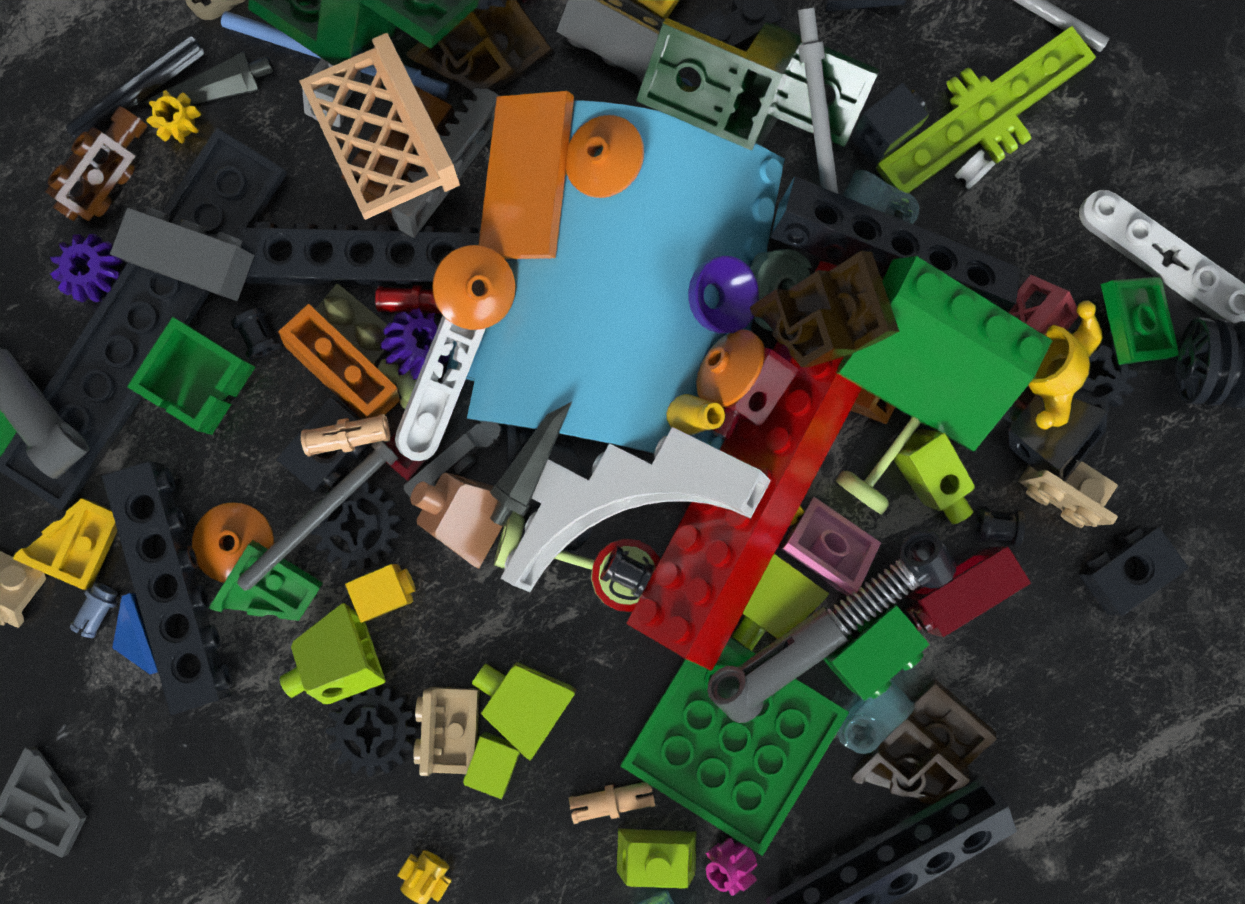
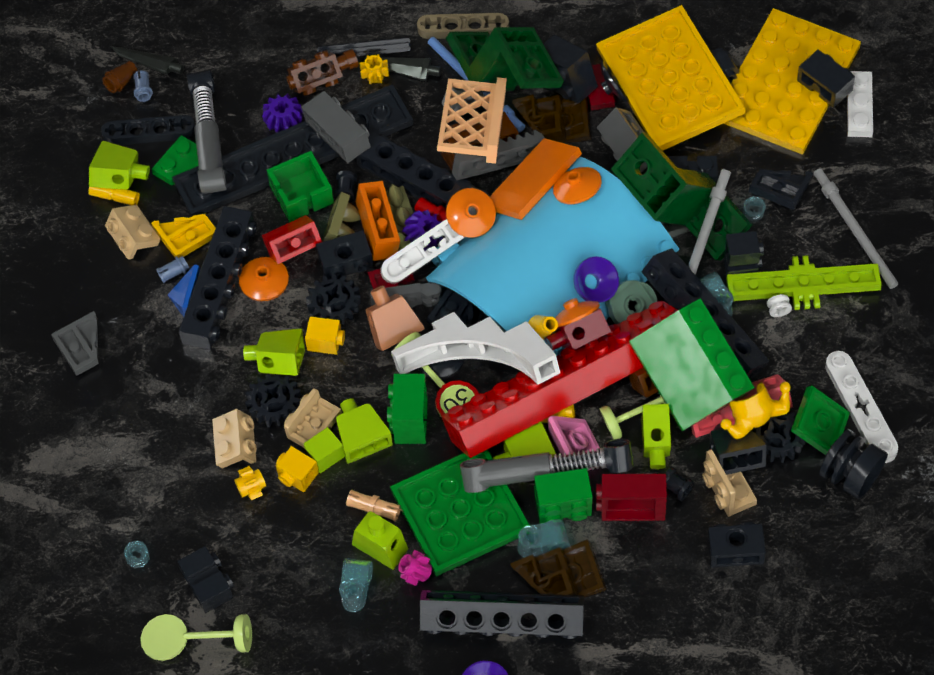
camera: 30 degrees right, 25 degrees down
(235, 468) = (291, 239): none -> red brick
(281, 592) = (267, 303): green wing -> none
(286, 410) = (341, 211): none -> olive tile
(317, 514) = (317, 279): dark grey bar -> none
(345, 435) = (359, 248): light nougat pin -> none
(357, 820) = (234, 438): none -> tan bracket
(472, 817) = (296, 469): none -> yellow brick
(522, 476) = (433, 311): pearl dark grey bar -> none
(575, 642) = (408, 408): none -> green piece
(627, 571) = (457, 391): black bush -> none
(830, 312) = (642, 308): dark brown slope -> none
(858, 30) = (753, 201): none -> clear light blue bush

